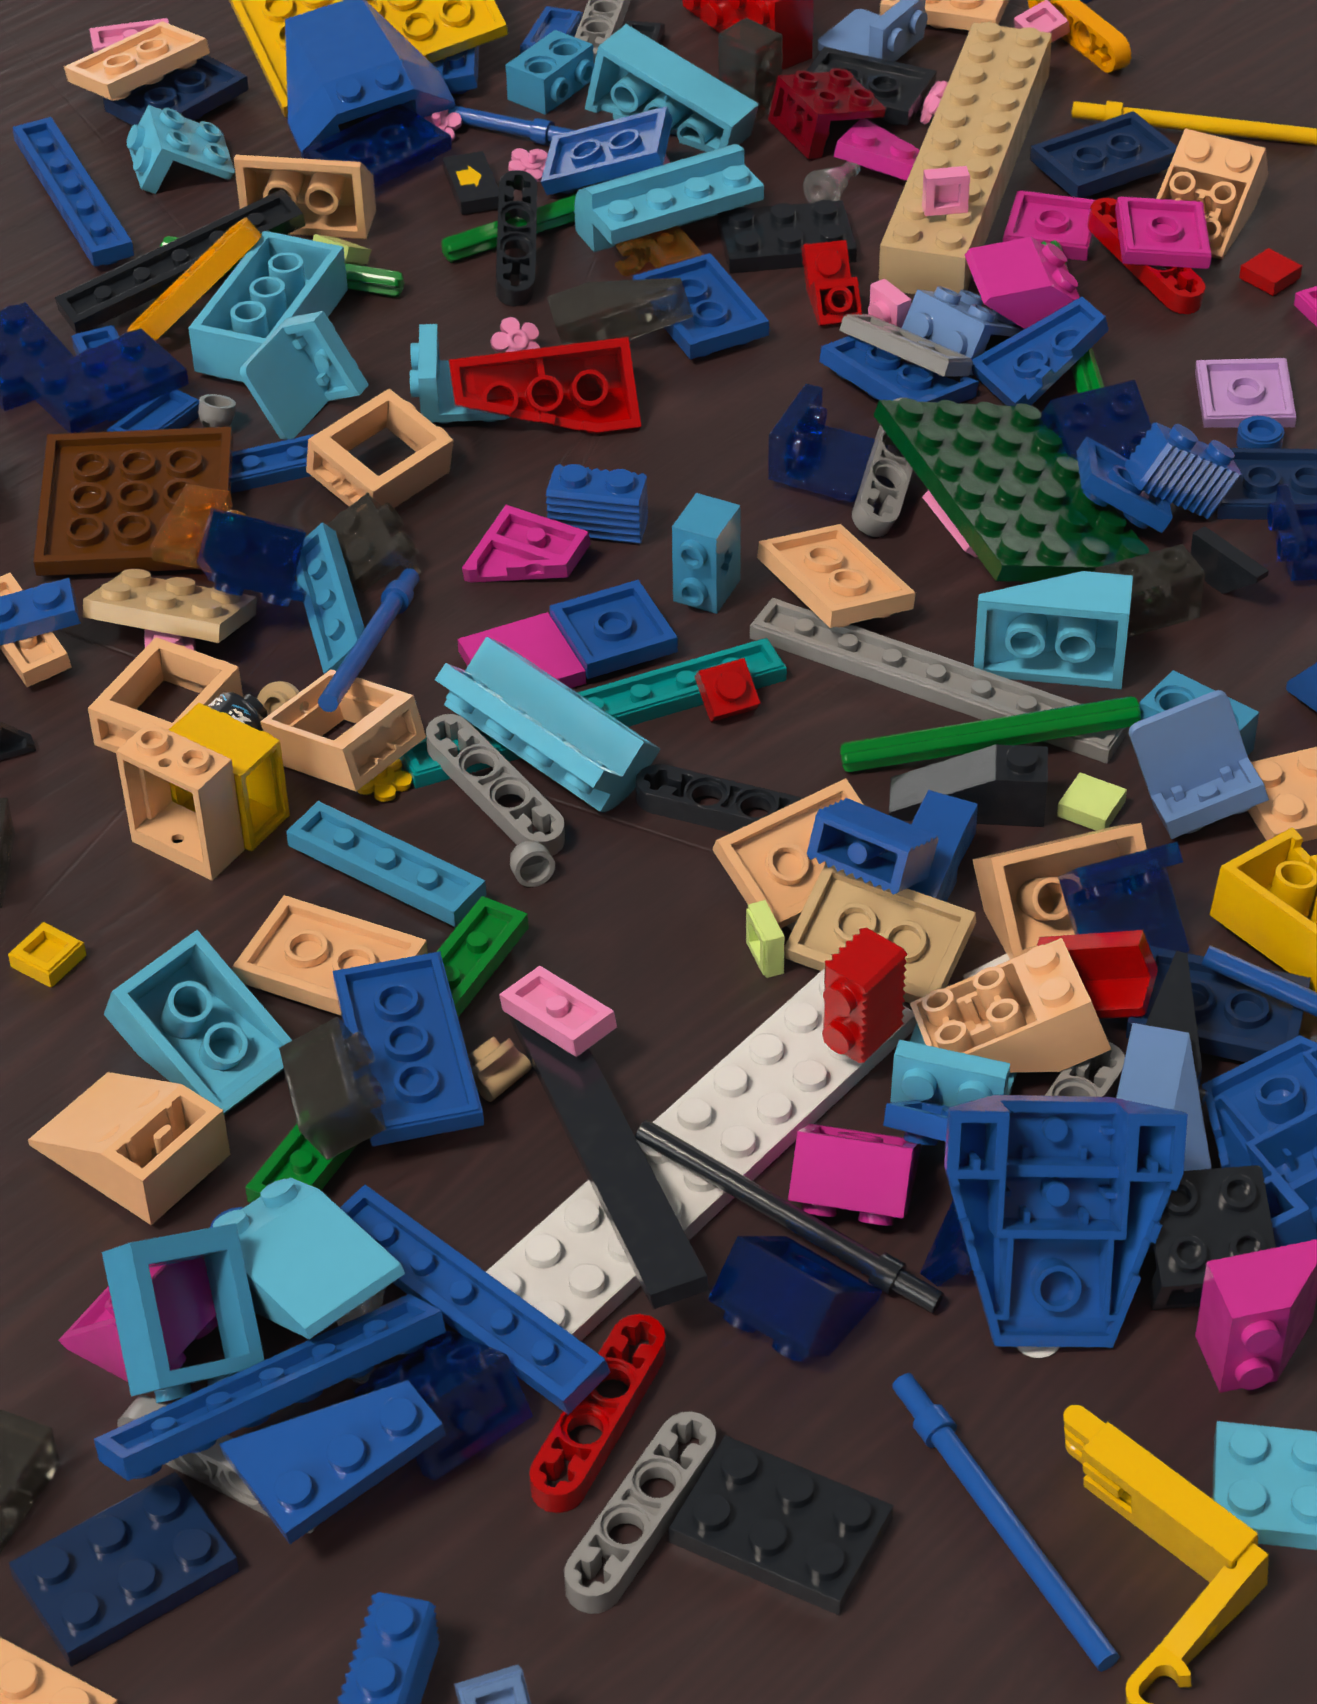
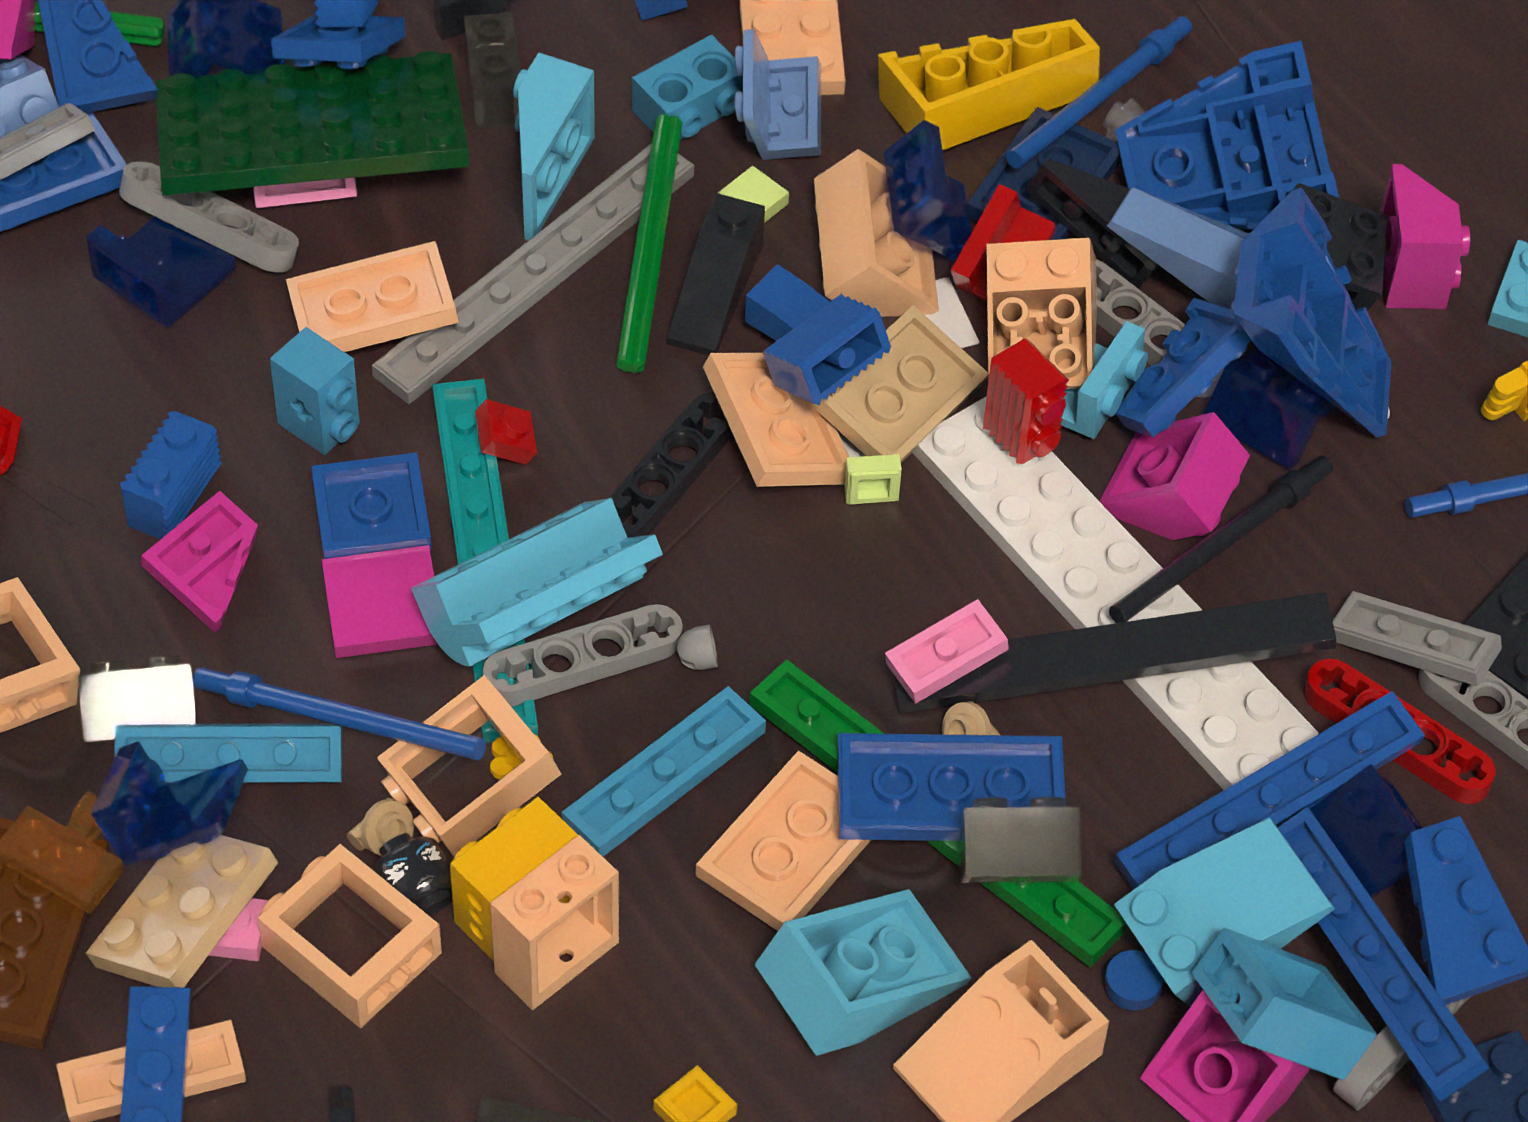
camera: 80 degrees left, 10 degrees up
(710, 1398) = (1416, 638): none -> light grey tile
(790, 1295) = (1312, 552): clear blue slope -> none

